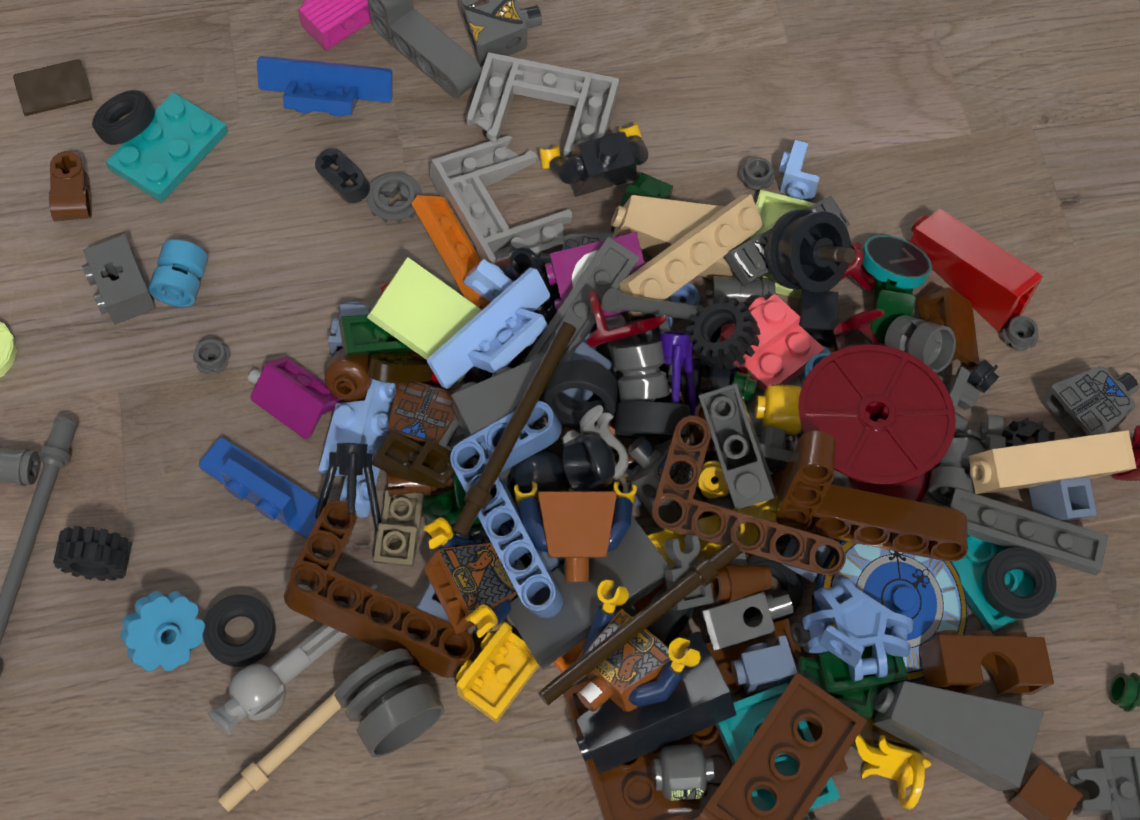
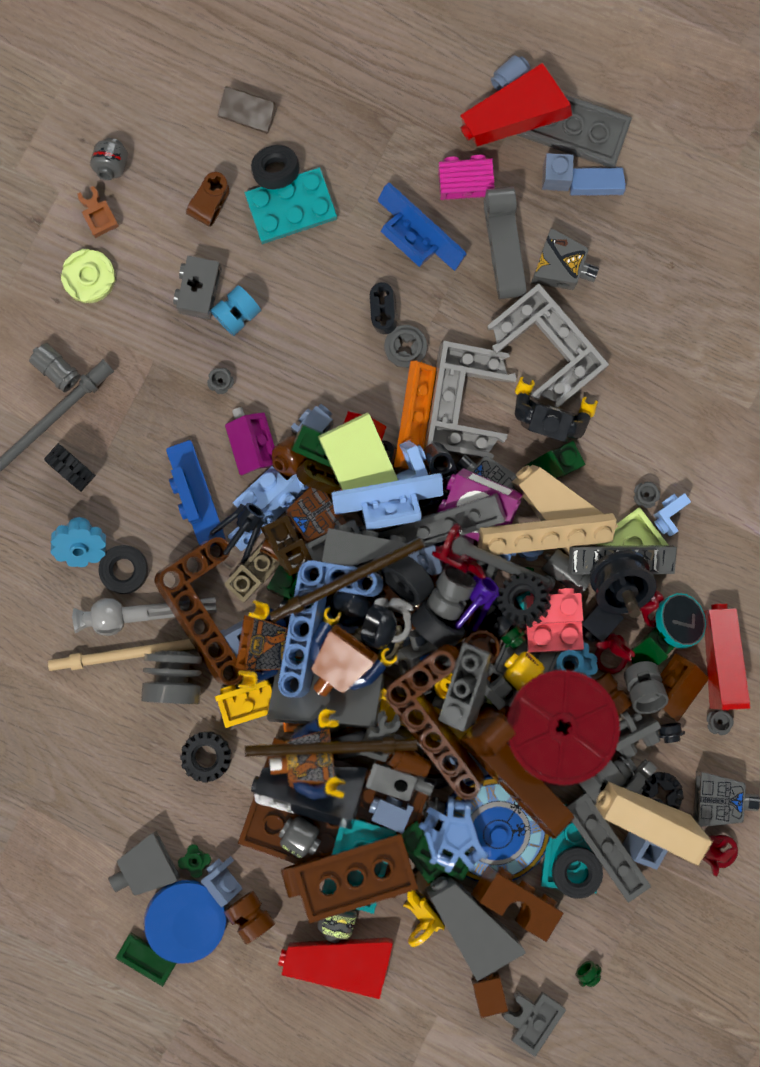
camera: 35 degrees right, 20 degrees up
(494, 747) = (189, 756): none -> black tyre

